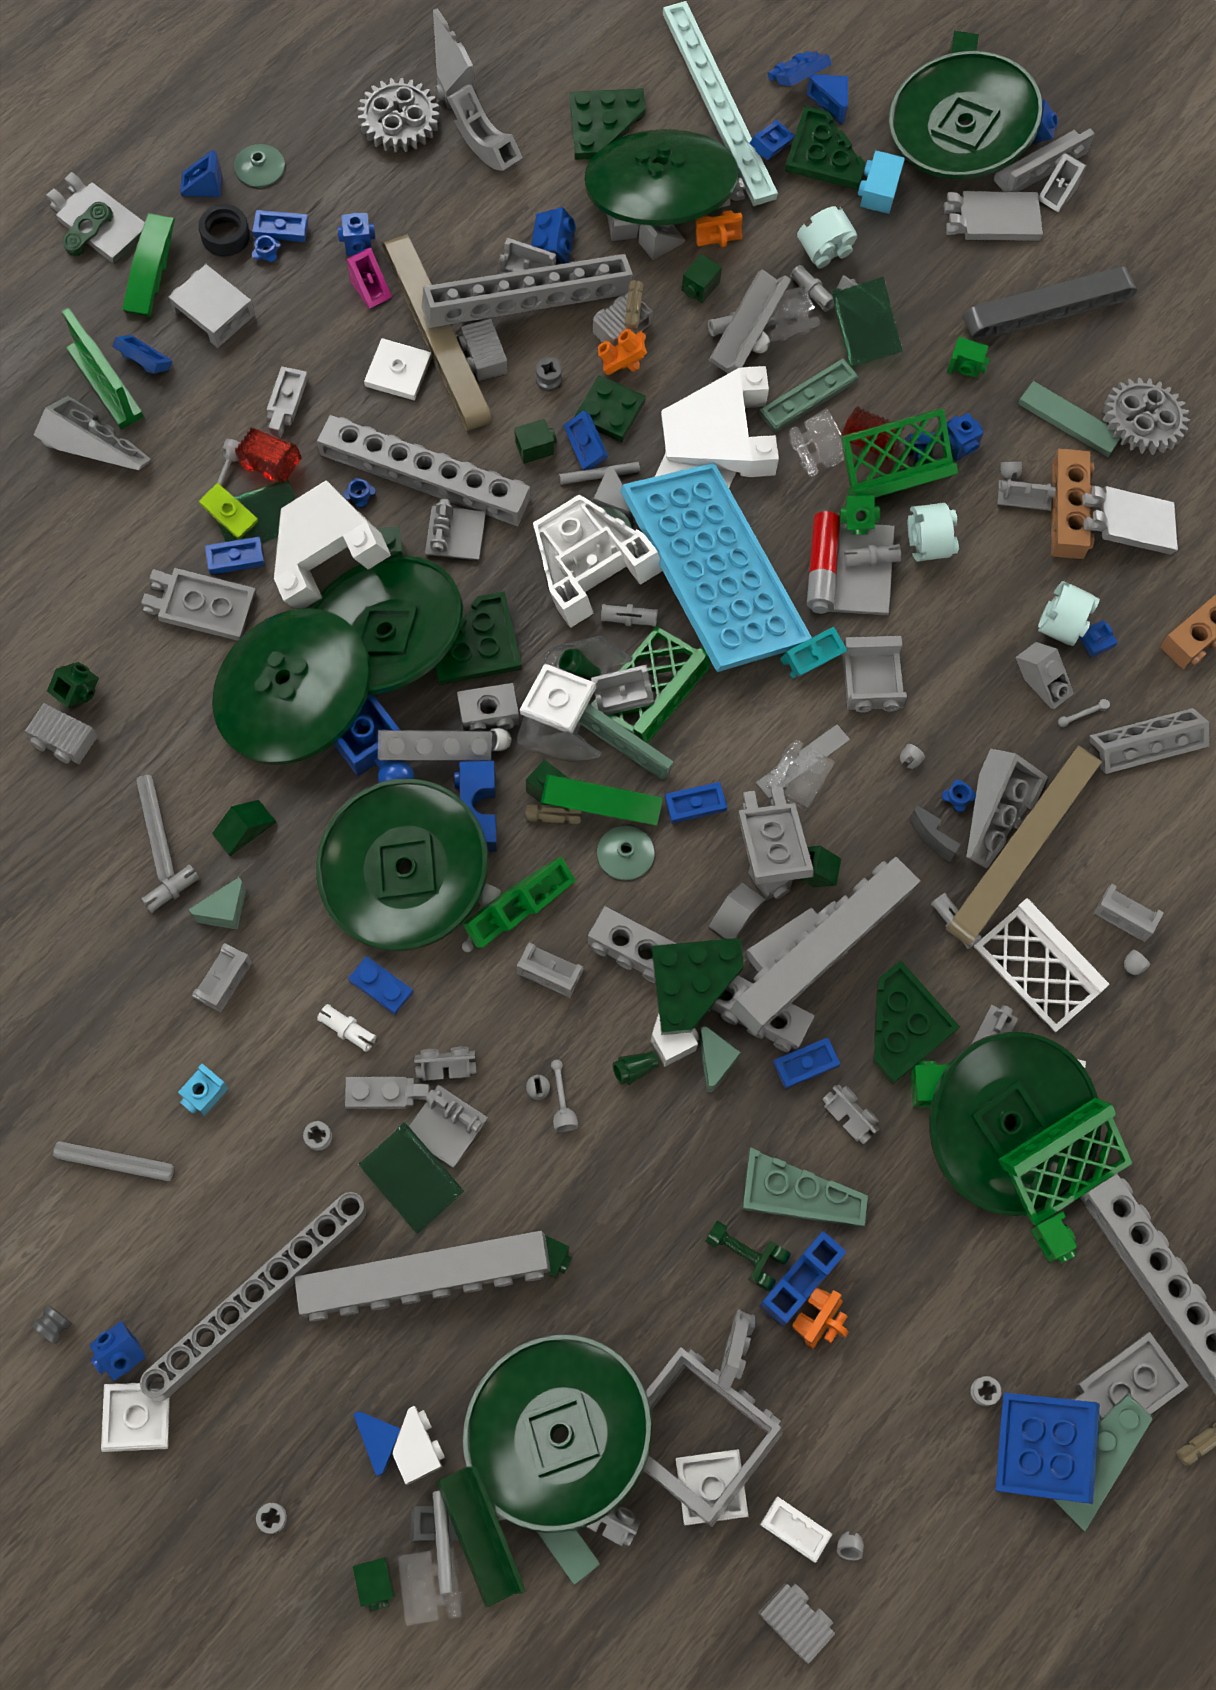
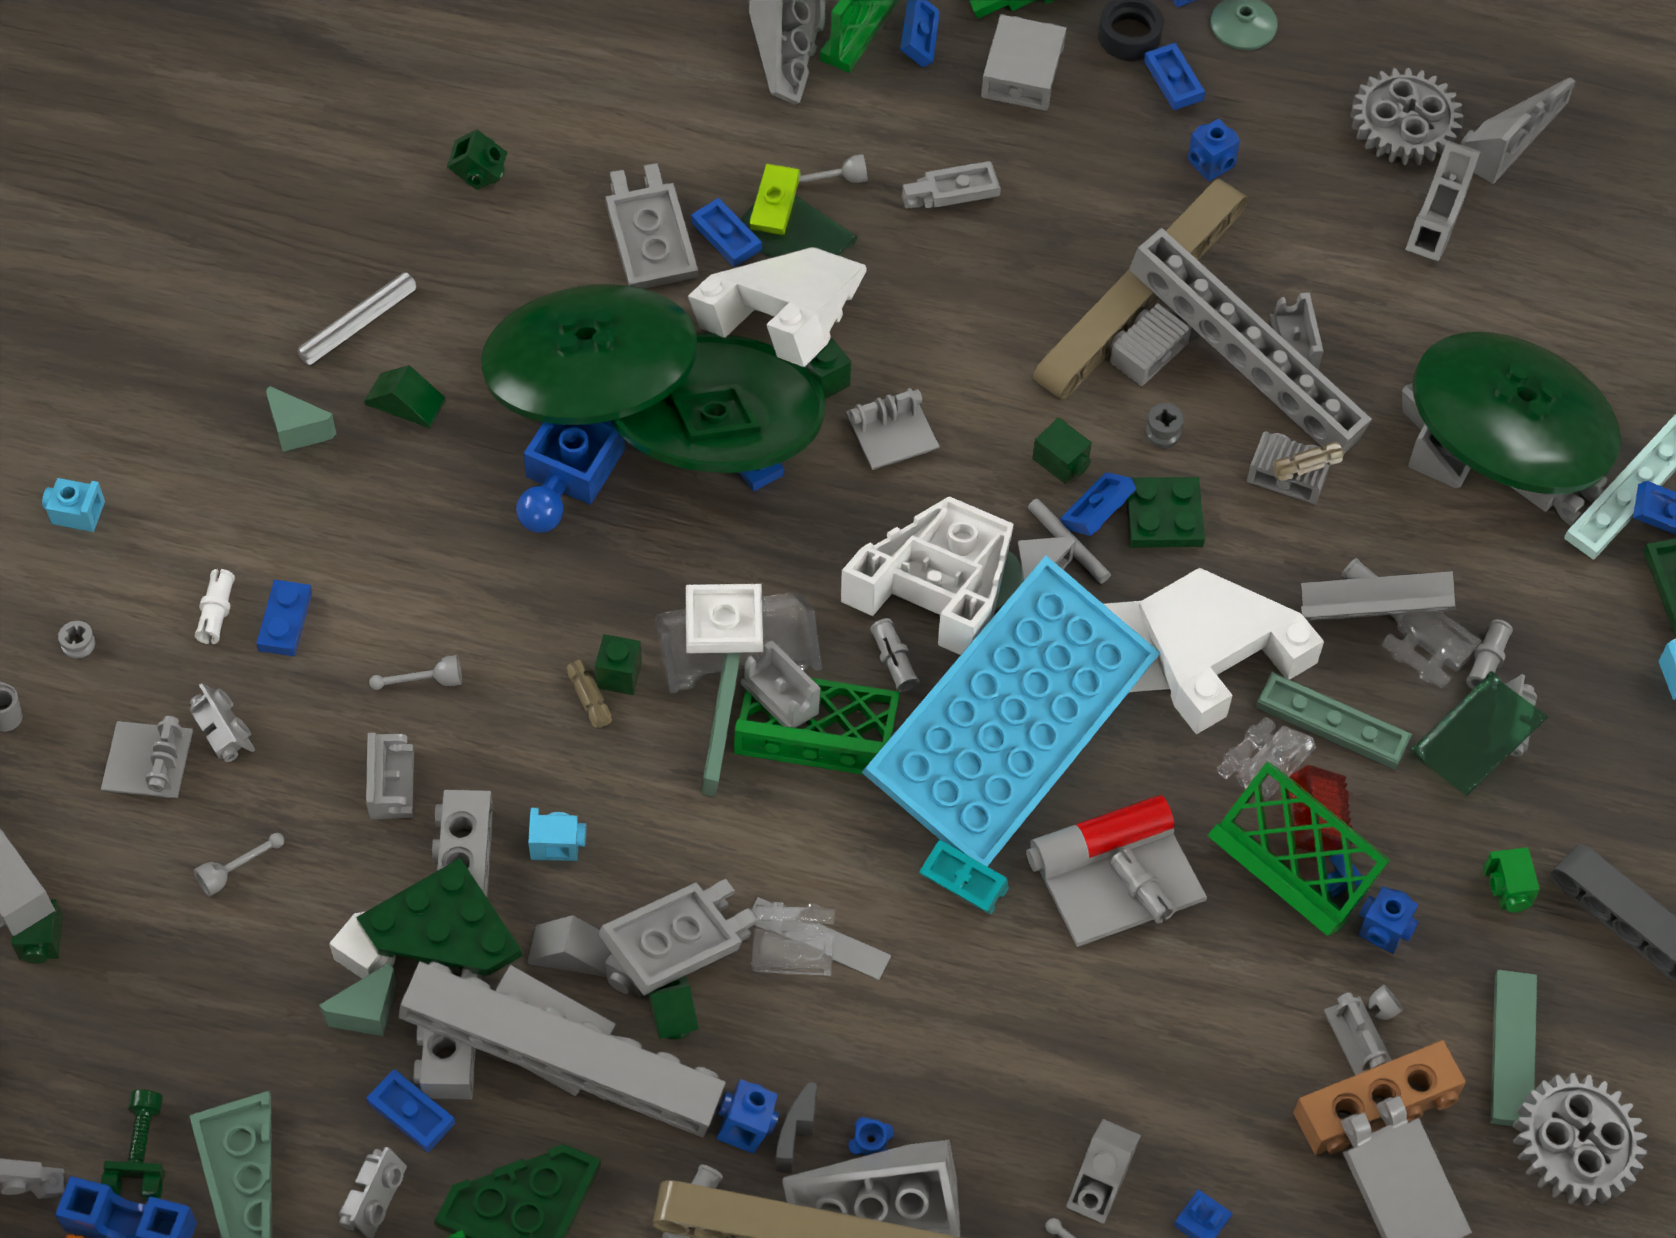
camera: 65 degrees right, 10 degrees down
(61, 734) = (415, 180): light grey brick -> none
(170, 888) = (292, 364): light grey pin -> none
(223, 978) = (213, 464): light grey hinge -> none
(266, 242) = (1136, 77): blue plate -> none
(268, 455) = (868, 200): clear red brick -> none
(359, 485) = (886, 304): blue plate -> none
(368, 278) = (1163, 187): dark pink slope -> none
(370, 840) = (432, 519): dark green dish -> none
(383, 1092) = (156, 677): light grey hinge -> none
(398, 369) = (1068, 275): white plate -> none
(411, 1178) = (69, 753): clear green piece -> none
(430, 481) = (960, 467): light grey brick -> none
(434, 745) = (597, 526): light grey plate -> none
(475, 783) = (575, 591): blue arch -> none
(483, 643) = (763, 518): dark green plate -> none
(498, 697) = (675, 545): light grey brick -> none
(500, 739) = (652, 595): white hinge -> none
(518, 902) = (455, 705): green slope -> none
(531, 1089) = (244, 836): light grey hinge -> none
(554, 233) = (1359, 346): blue bracket -> none
(578, 664) = (785, 625): dark green cone -> none
(601, 799) = (625, 728): green slope -> none
(603, 117) = (1568, 321): dark green plate -> none
(624, 354) = (1241, 484): orange hips -> none
(625, 865) = (593, 807): sand green dish -> none
(635, 1066) = (311, 920): dark green cone -> none
(652, 883) = (555, 836): none -> medium azure brick
(695, 802) = (687, 837): blue plate -> none
(701, 278) = (1410, 524): dark green brick -> none
(719, 229) = (1496, 513): orange hips -> none
(762, 343) = (1367, 627): white hinge -> none
(827, 236) = (1569, 633): light aqua brick -> none
(856, 503) = (1187, 840): green brick -> none
(873, 673) = (981, 964): light grey panel -> none
(912, 756) = (892, 1058): light grey hinge -> none
(917, 855) = (747, 1116): none -> blue brick
(932, 531) = (1217, 937): light aqua brick -> none
(1067, 613) = (1203, 1154): light aqua brick -> none

